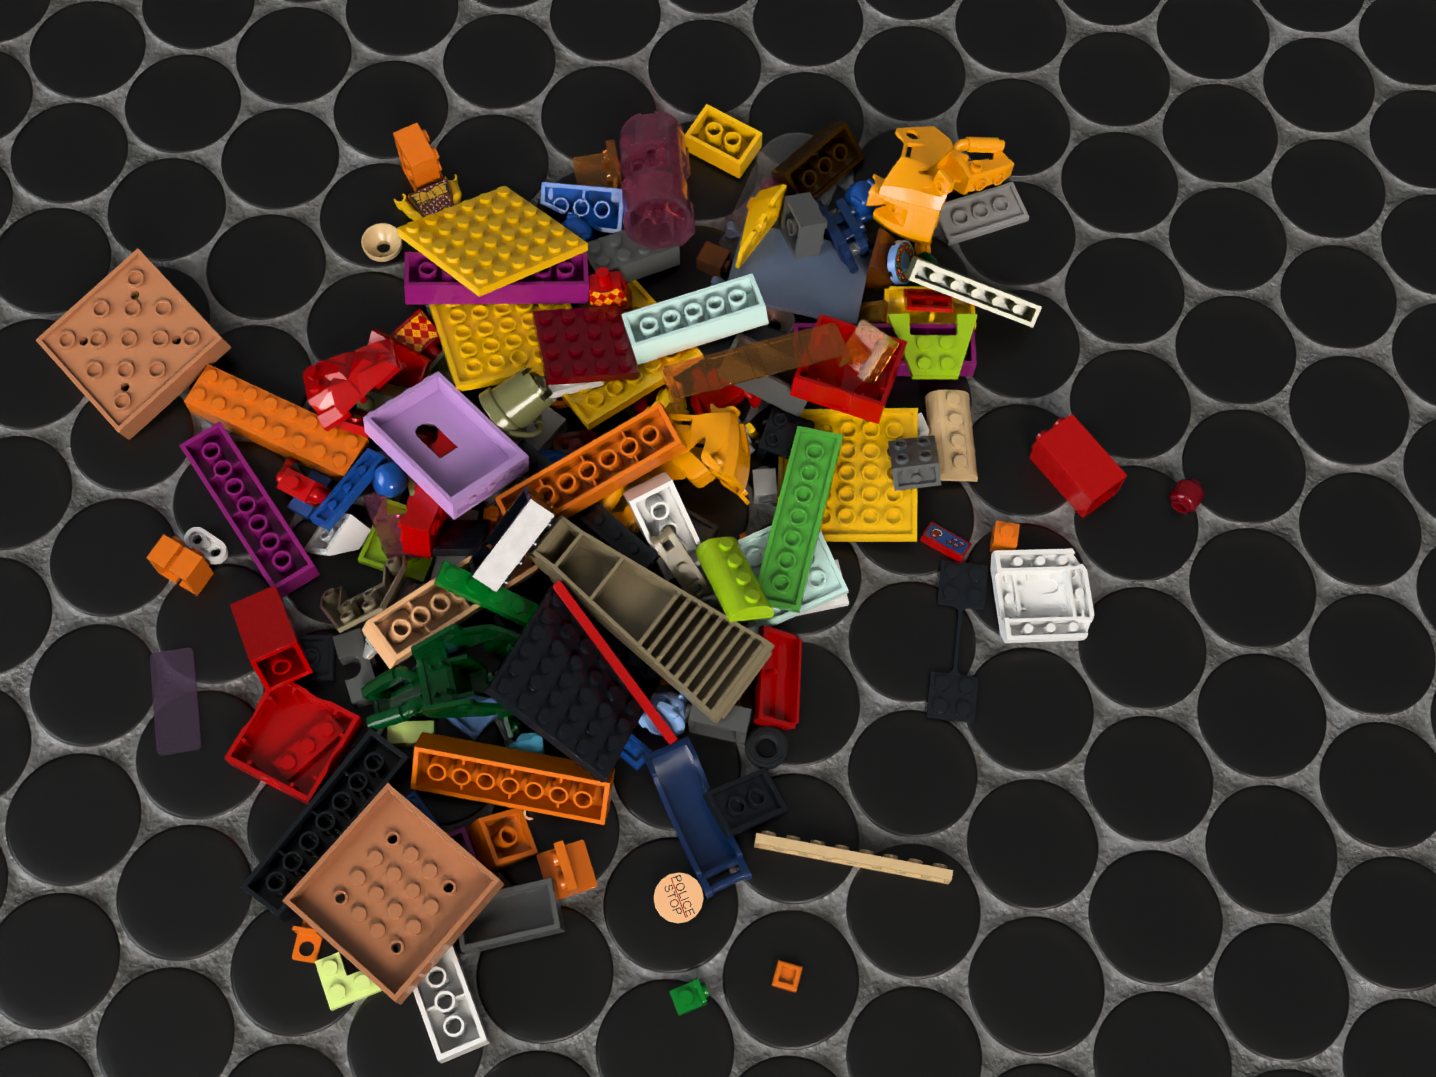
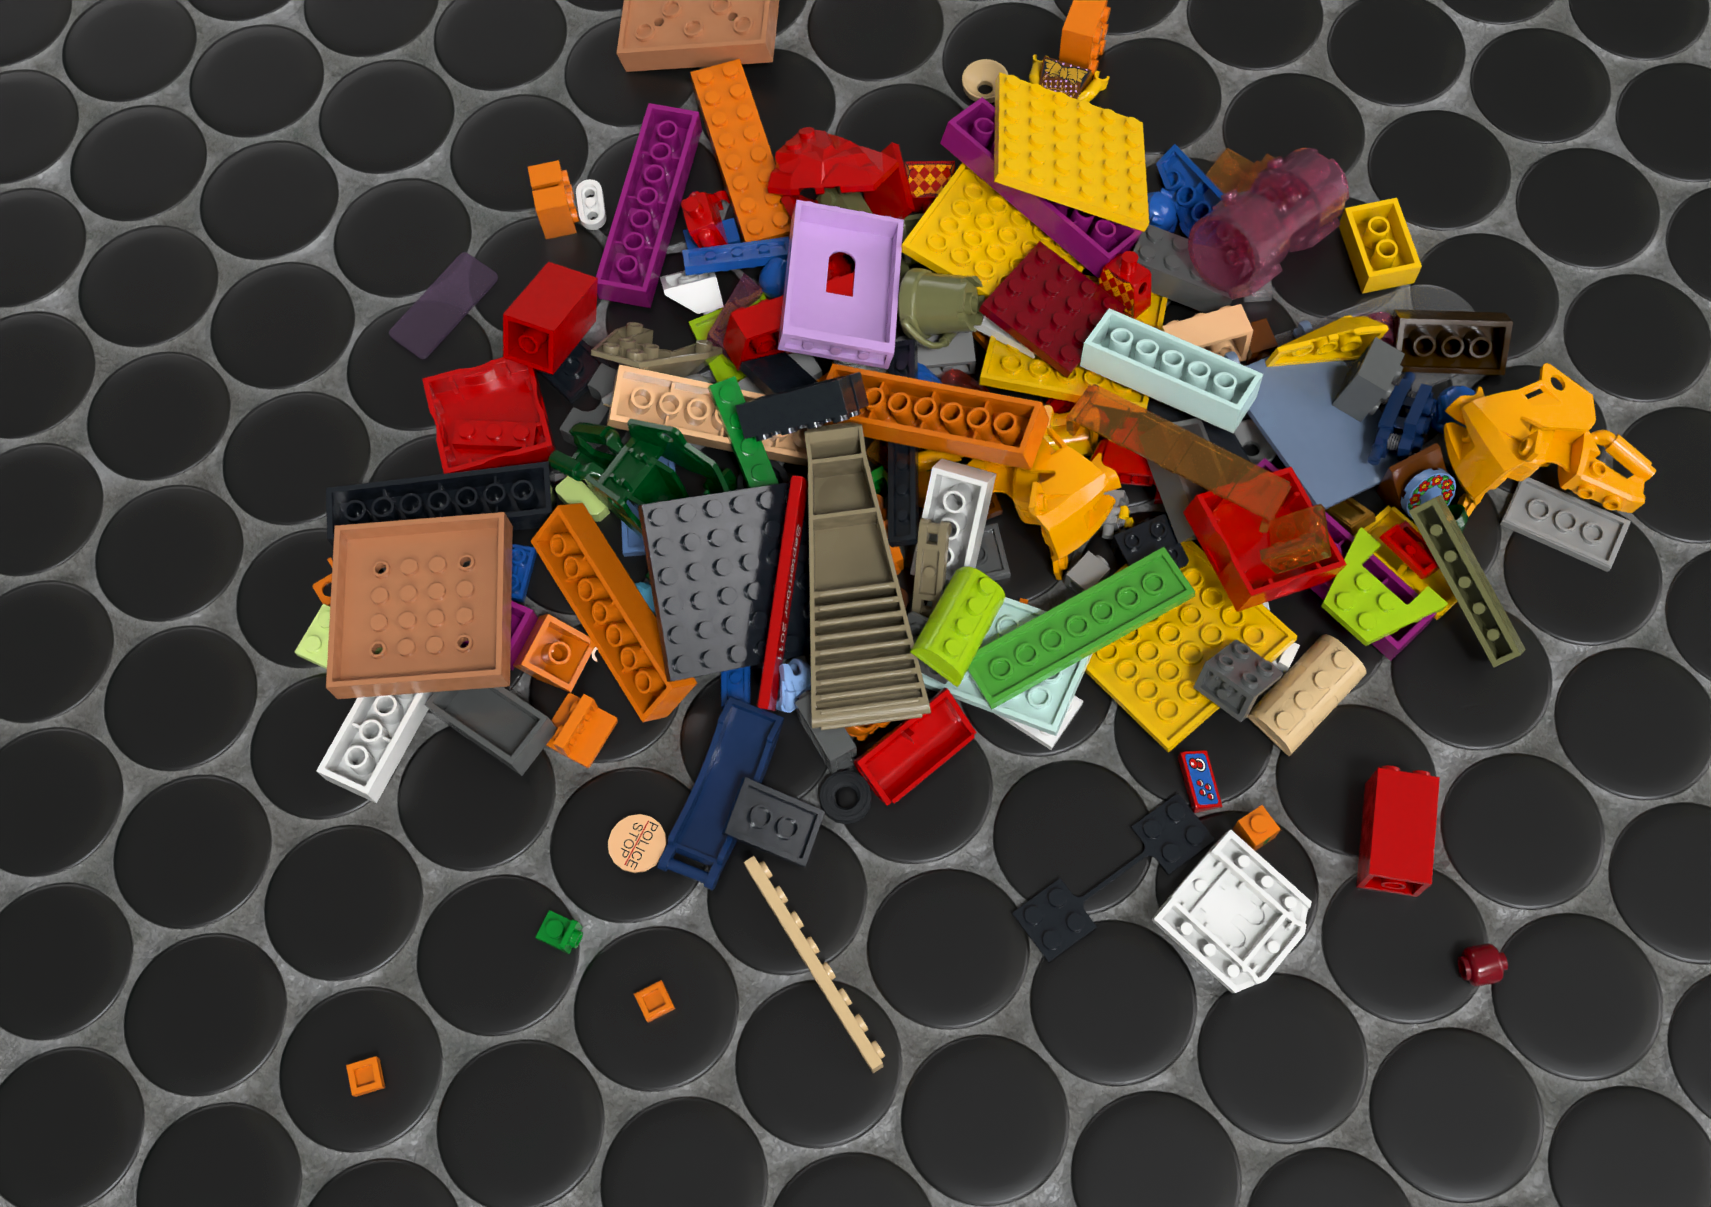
camera: 55 degrees right, 0 degrees up
(692, 273) = (1216, 331): none -> light nougat brick

